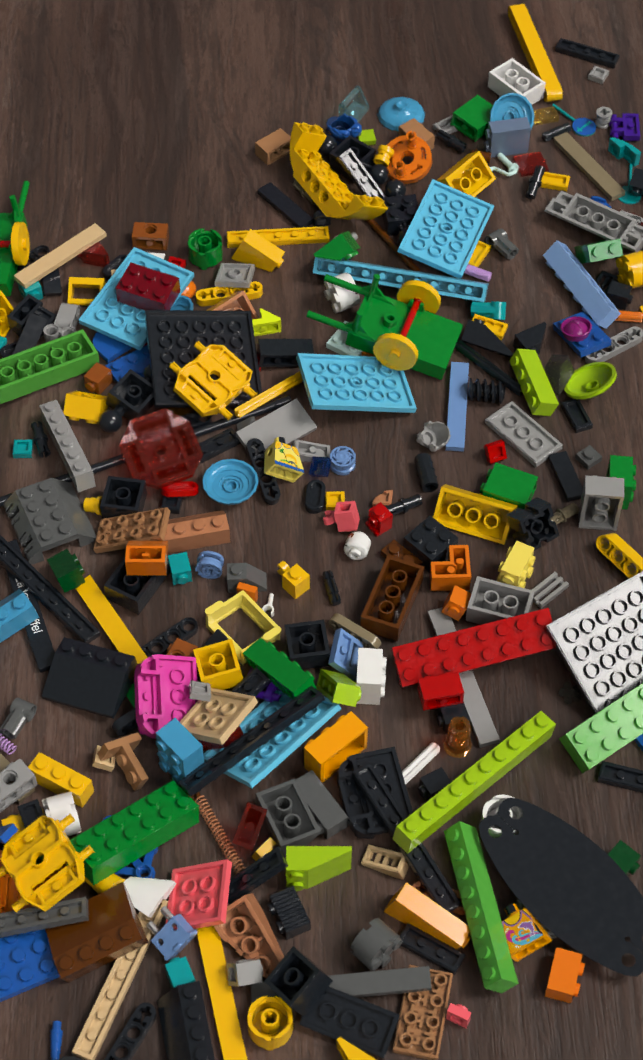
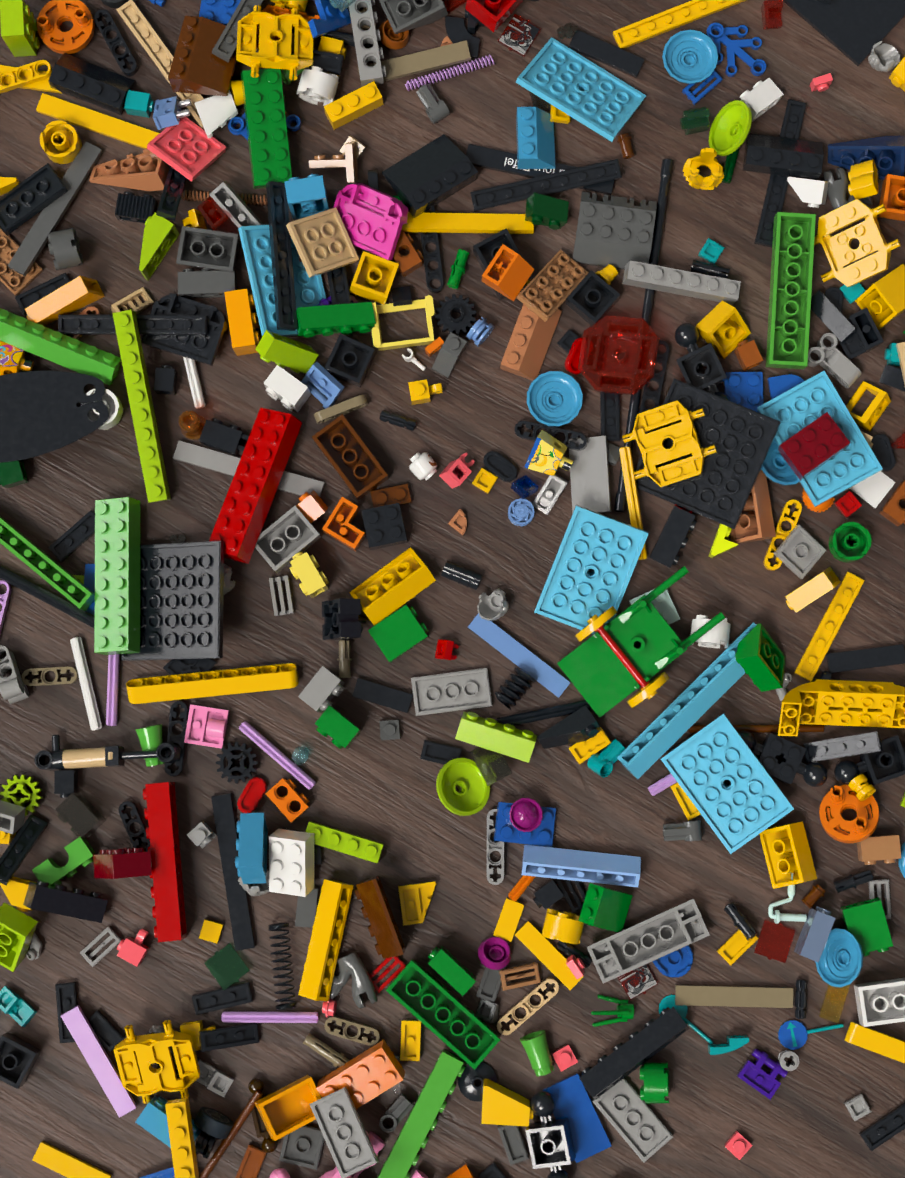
camera: 130 degrees right, 30 degrees up
(149, 618) = (458, 269): none -> green pin
(180, 568) = (493, 307): teal brick -> none
(199, 691) = (354, 245): light grey tile -> none
(206, 591) = (455, 305): none -> black gear
(231, 814) = (234, 206): none -> light grey brick
(244, 972) = (108, 146): light grey brick -> none
(298, 981) = (67, 170): black brick -> none
(379, 519) = (437, 501): red brick -> none
(404, 505) = (440, 532): black pin -> none
(440, 690) = (232, 430): red brick -> none
(531, 338) = (545, 770): black slope -> none

